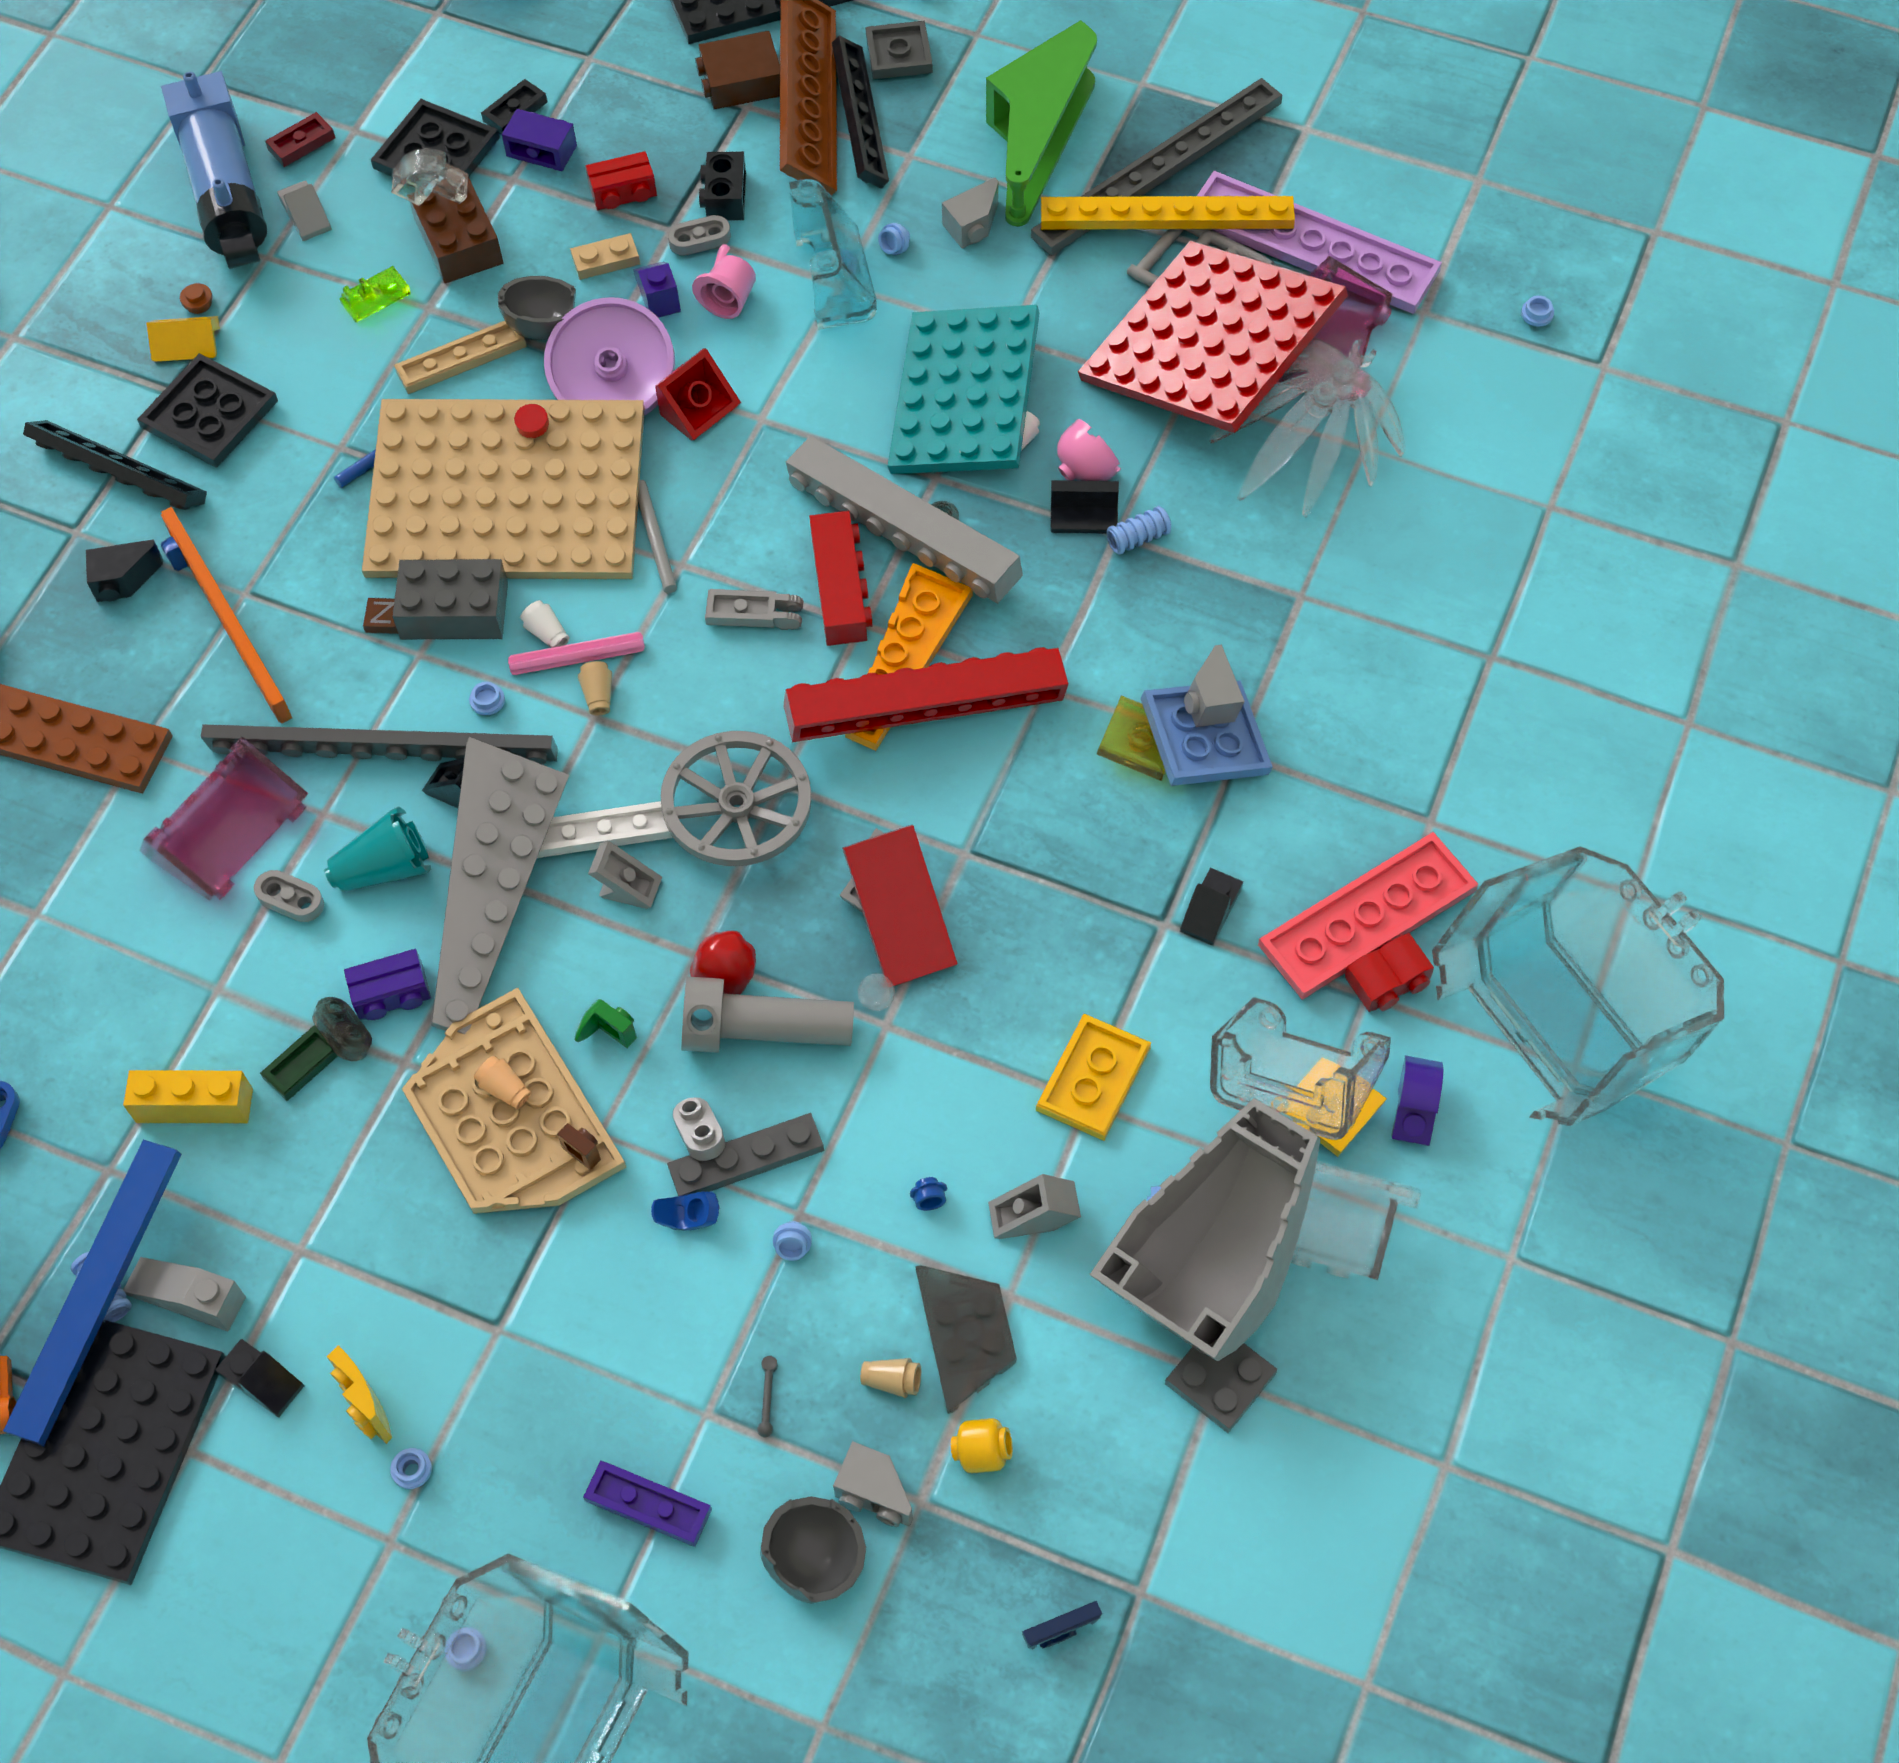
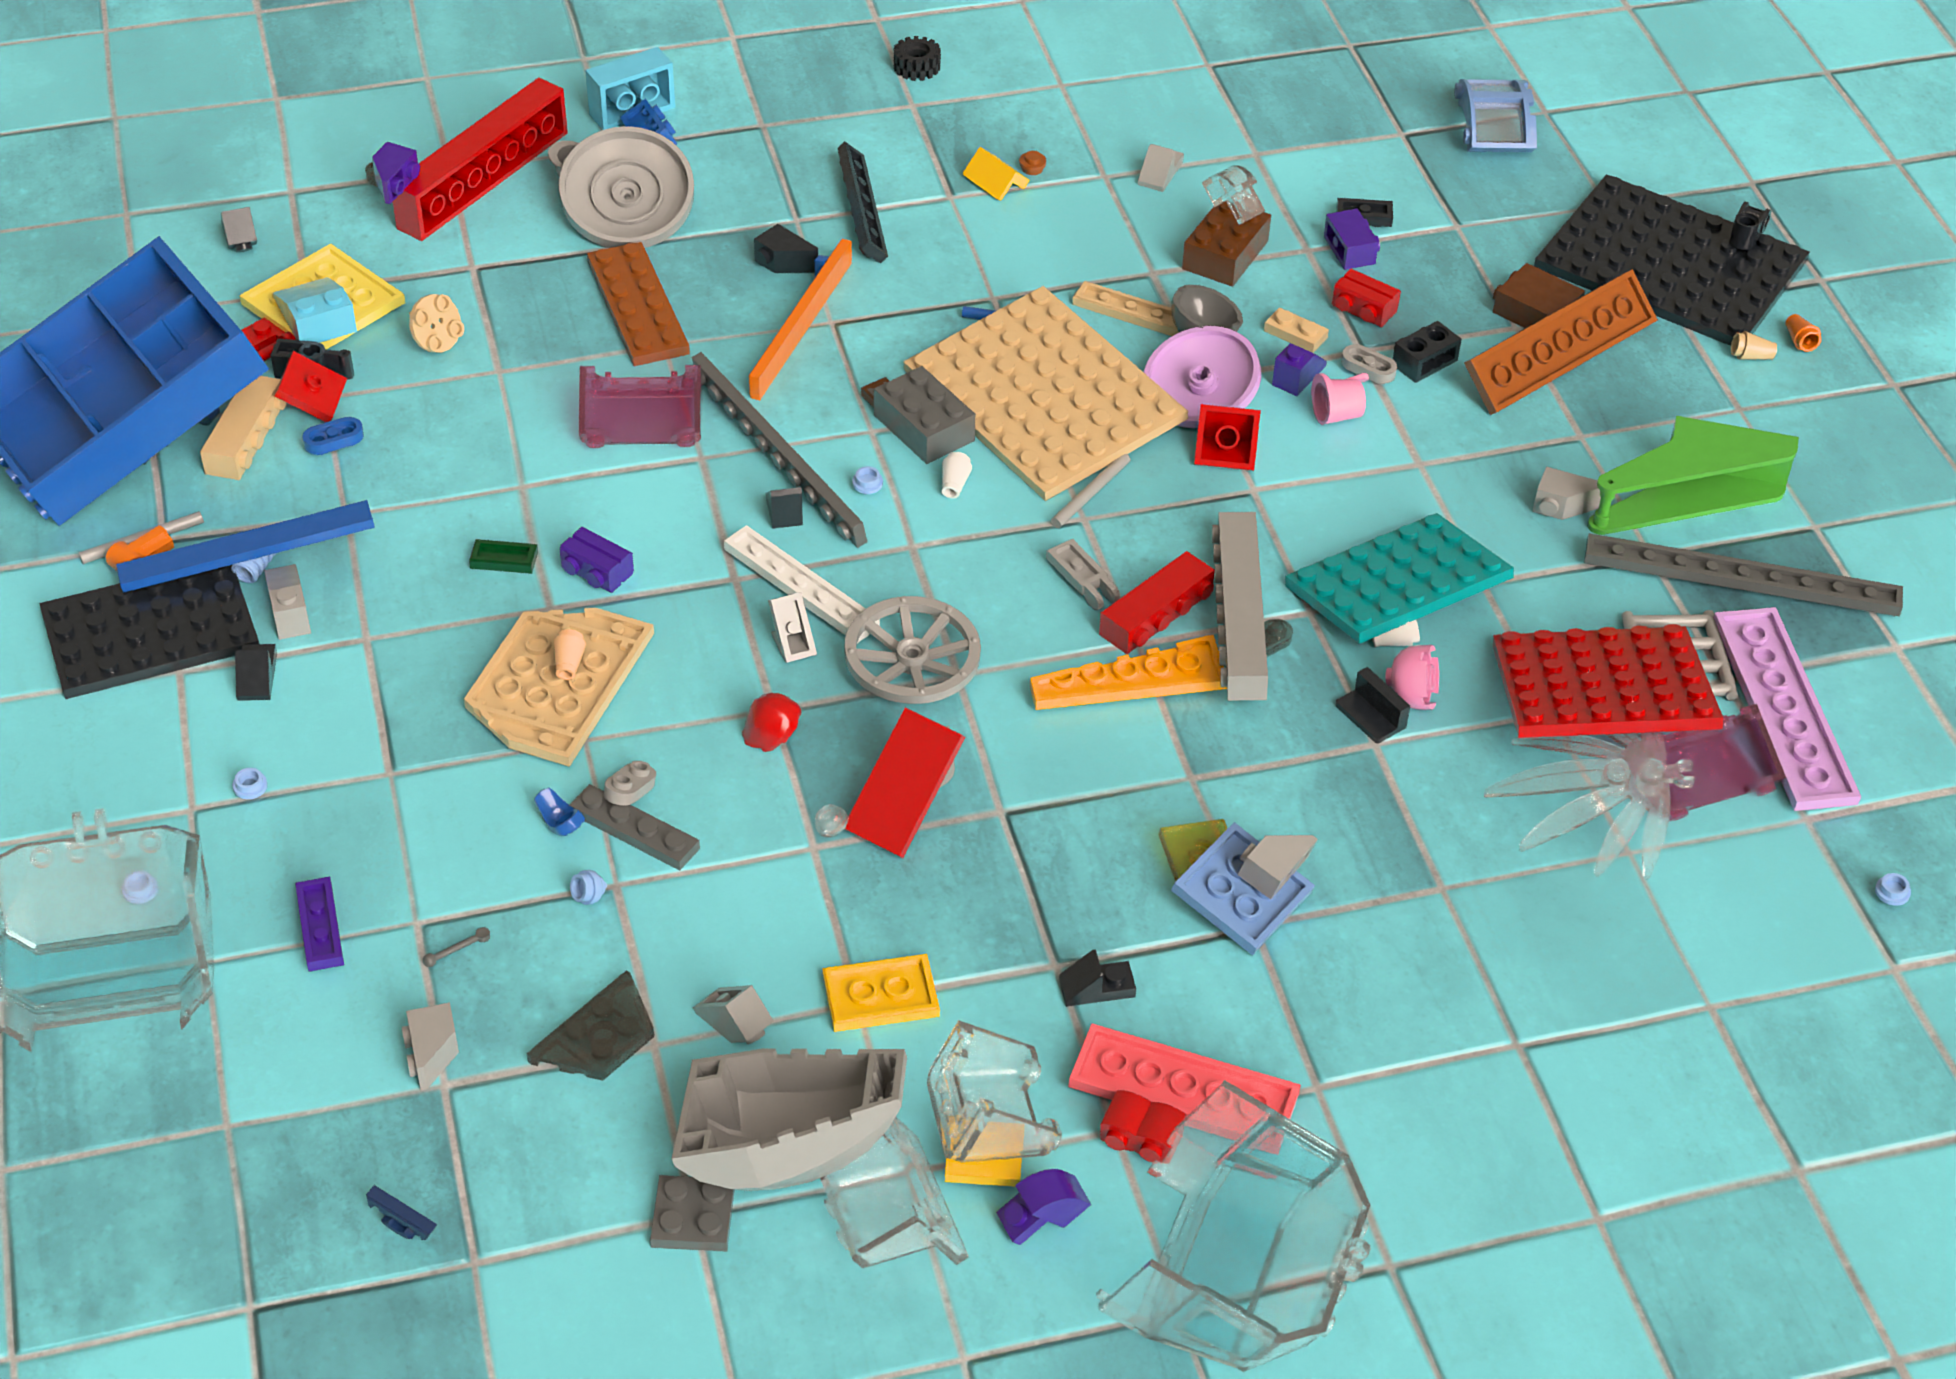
camera: 50 degrees right, 15 degrees down
(188, 1096) = (426, 513): yellow brick -> none
(207, 410) = (950, 218): black plate -> none
(217, 166) = (1167, 80): medium blue piece -> none
(292, 896) = (619, 474): light grey plate -> none
(300, 139) = (1213, 131): dark red plate -> none
(342, 1029) = (542, 558): clear smoke plate -> none
(363, 1402) = (275, 719): yellow slope -> none
(374, 293) = (1132, 240): clear neon green plate -> none
(379, 855) = (693, 496): teal cone -> none
(441, 129) = (1292, 195): black plate -> none
(497, 839) = (751, 542): light grey wing -> none
(531, 420) = (1103, 362): red tile -> none
(576, 653) = (951, 505): bright pink axle -> none
(580, 1145) = (554, 720): reddish brown plate -> none
(596, 686) = (932, 529): tan cone -> none
(612, 1021) = (669, 682): green plate -> none
(760, 1018) = (720, 732): light grey piece -> none
(813, 1549) = (348, 1025): dark grey cylinder -> none
(839, 266) = (1422, 449): clear light blue windscreen -> none
(860, 112) = (1580, 383): black plate -> none
(893, 1376) = (527, 1007): tan cone -> none
(894, 239) = (1491, 466): light blue plate -> none
(899, 49) = (1664, 372): dark grey plate -> none
(924, 694) = (1103, 701): red brick -> none
(929, 1194) = (692, 945): blue plate -> none
(982, 1445) = (512, 1088): yellow head -> none
(1138, 530) = (1387, 749): light blue piece -> none
(1168, 212) = (1700, 601): yellow plate -> none

